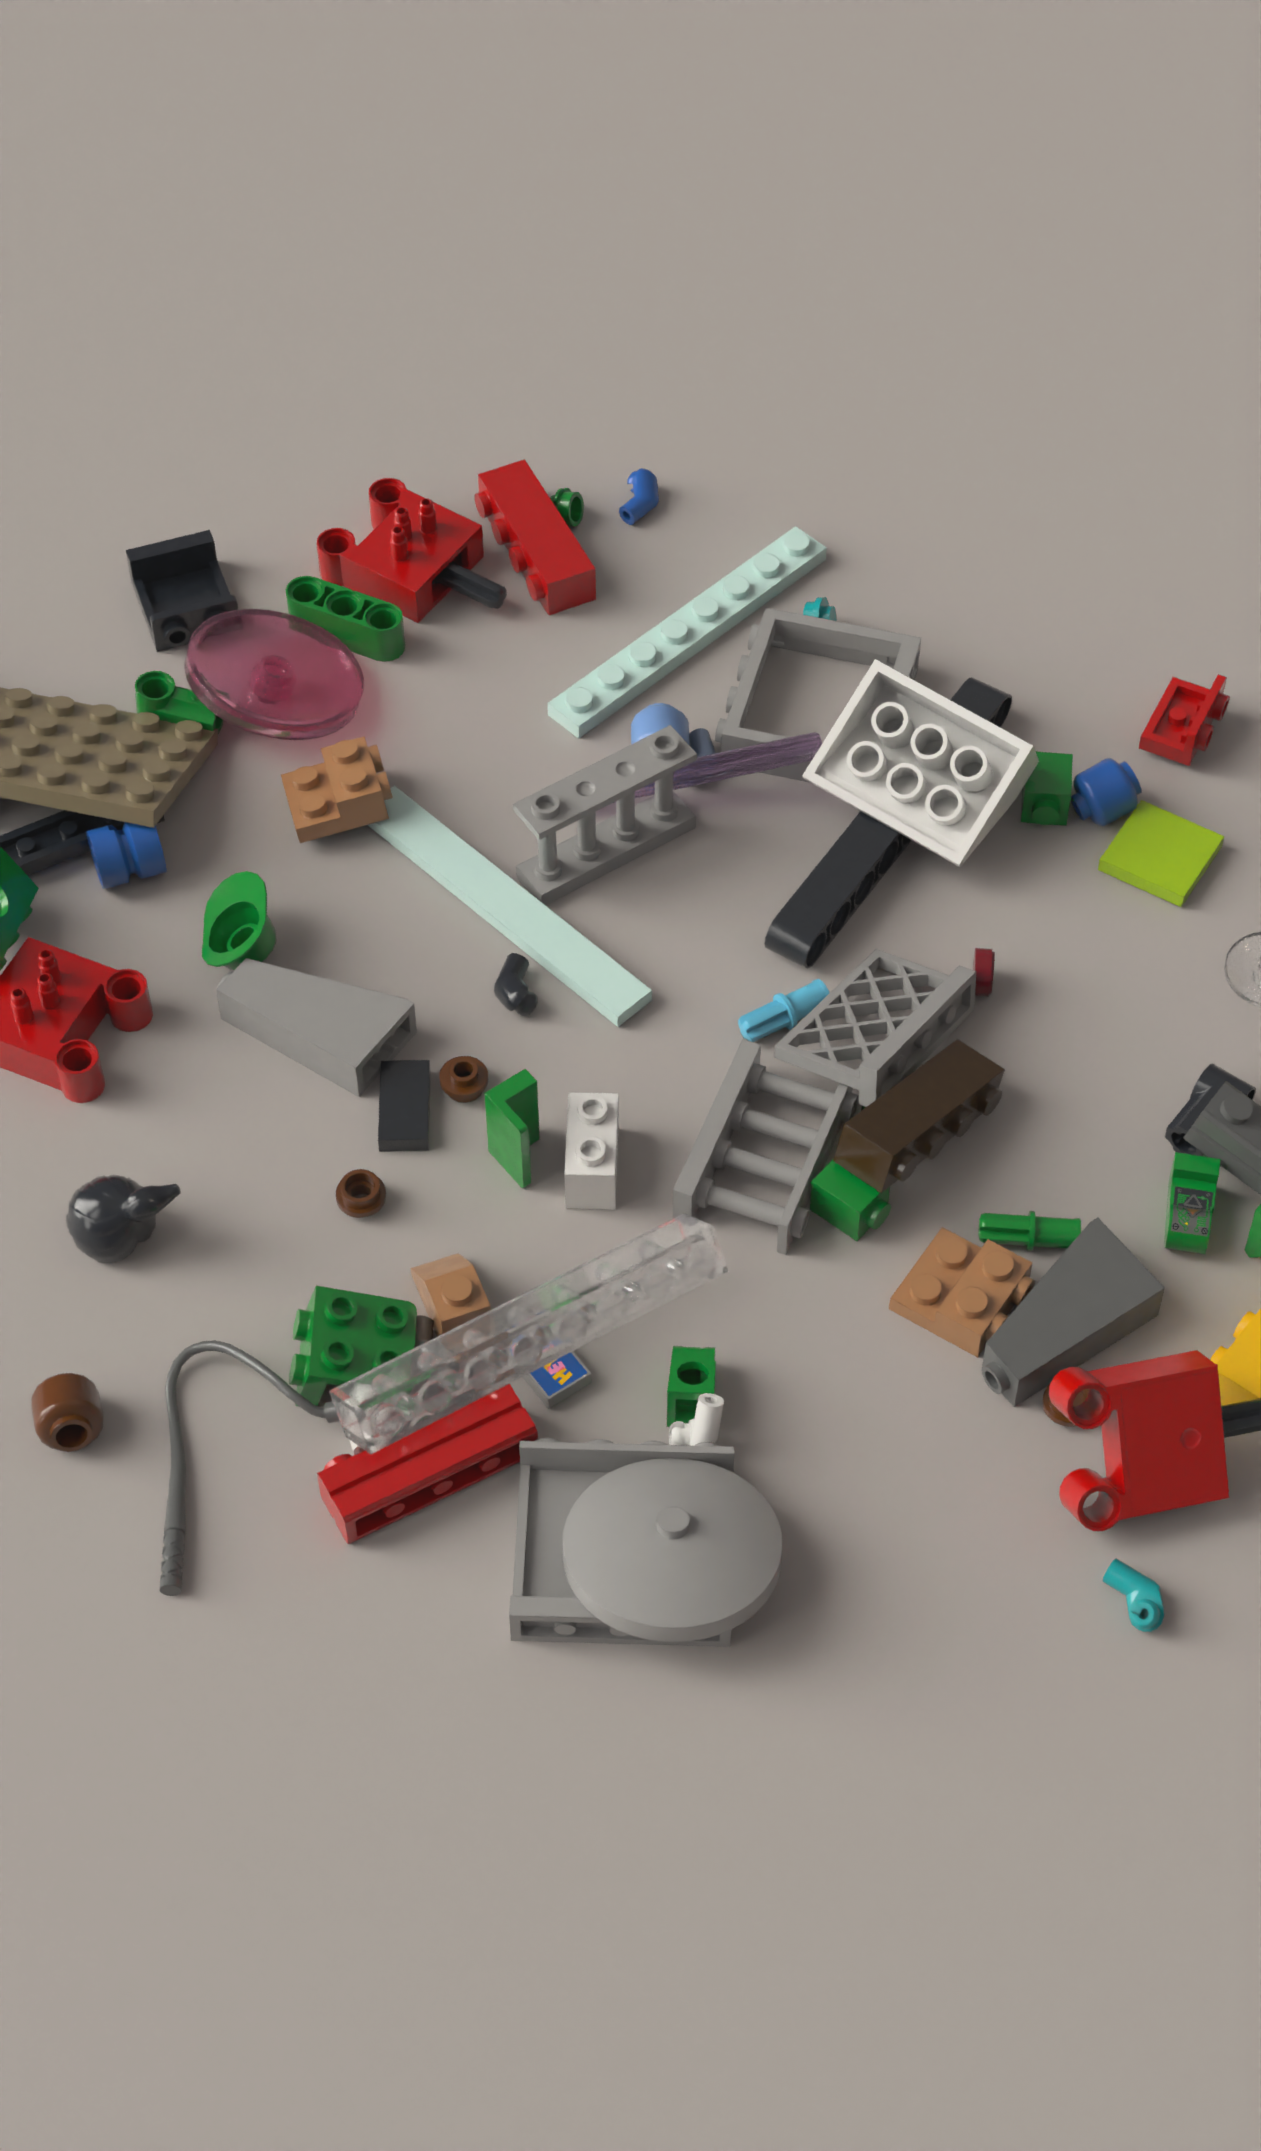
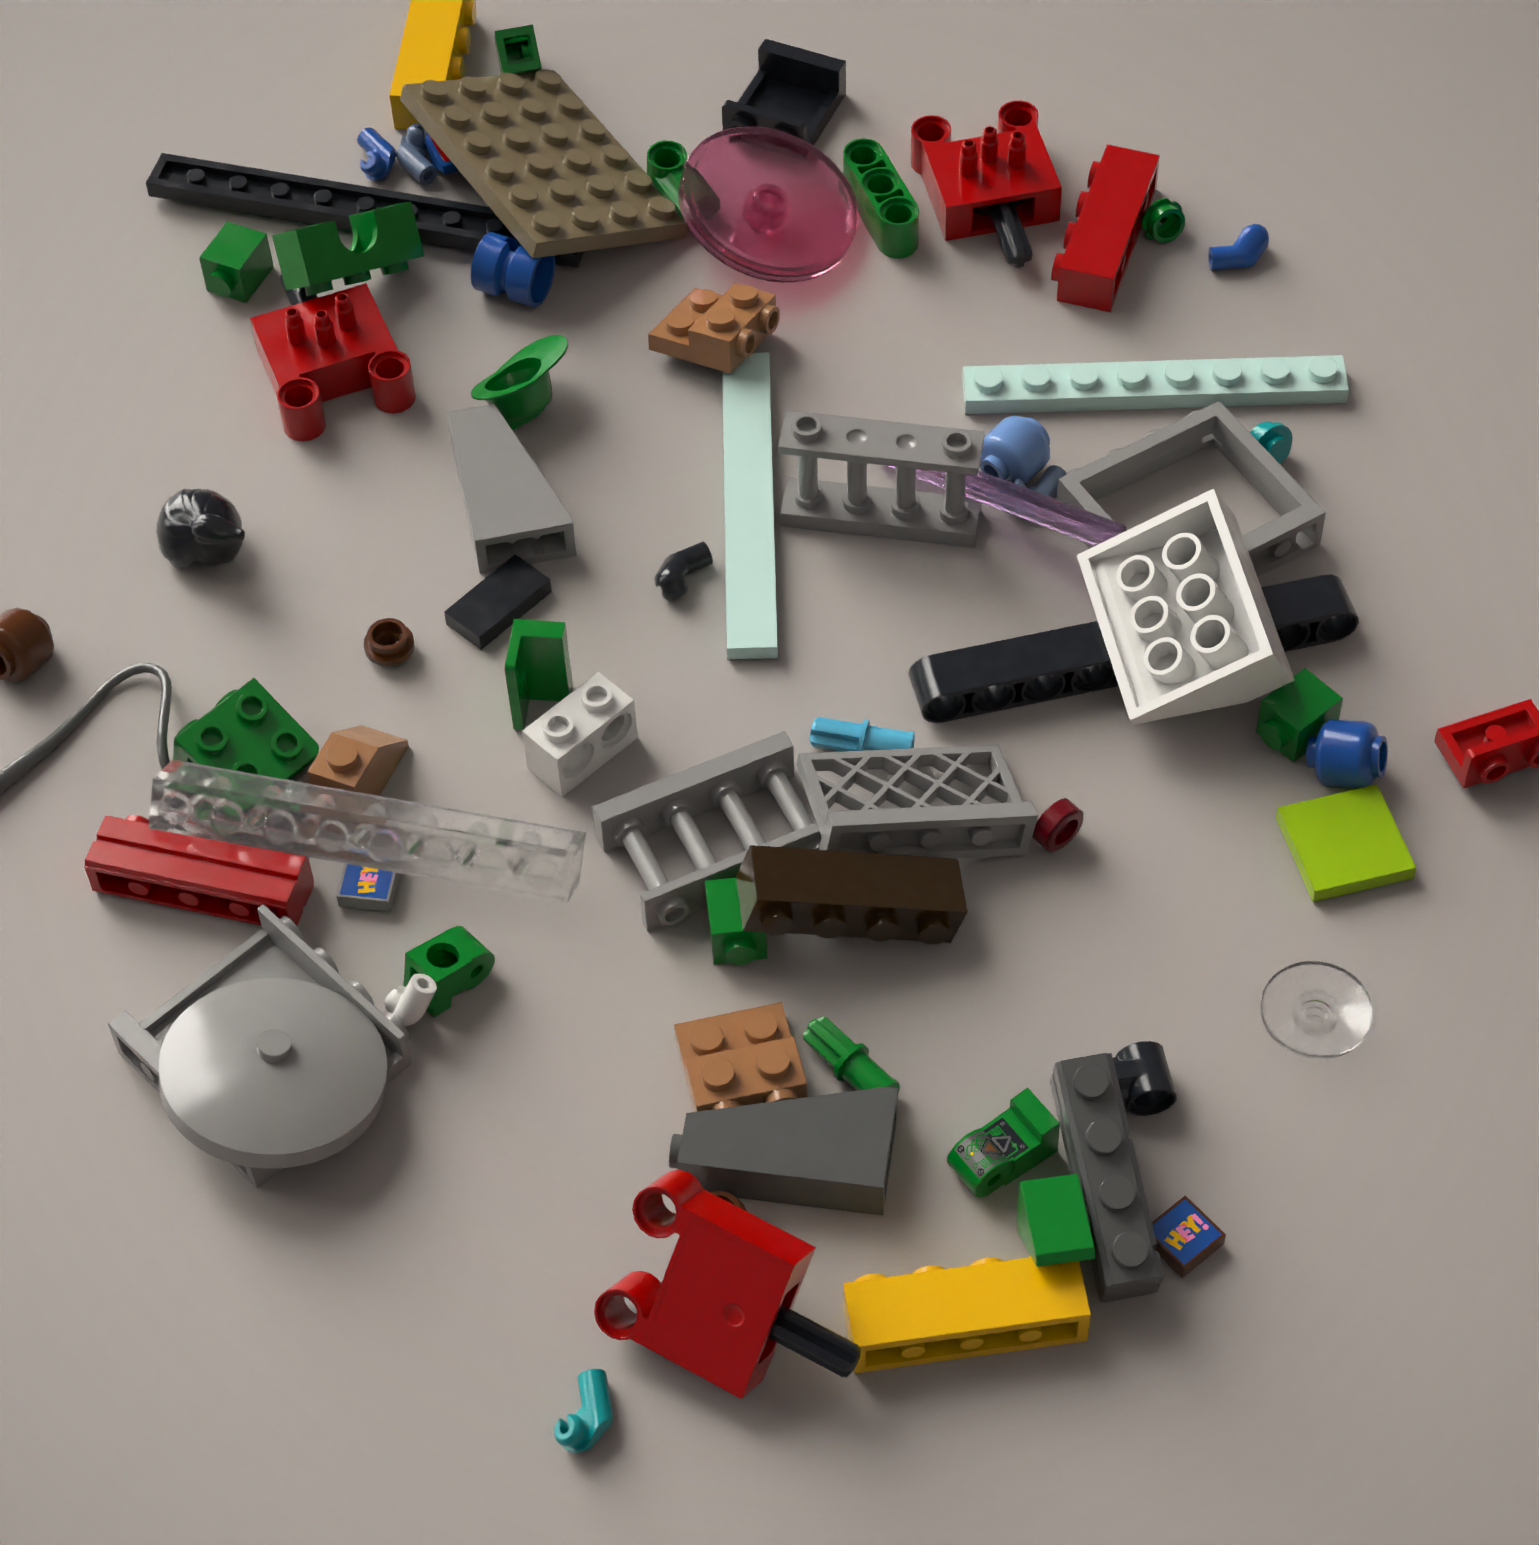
camera: 45 degrees right, 0 degrees up
(463, 1088) = (563, 607): reddish brown plate -> none

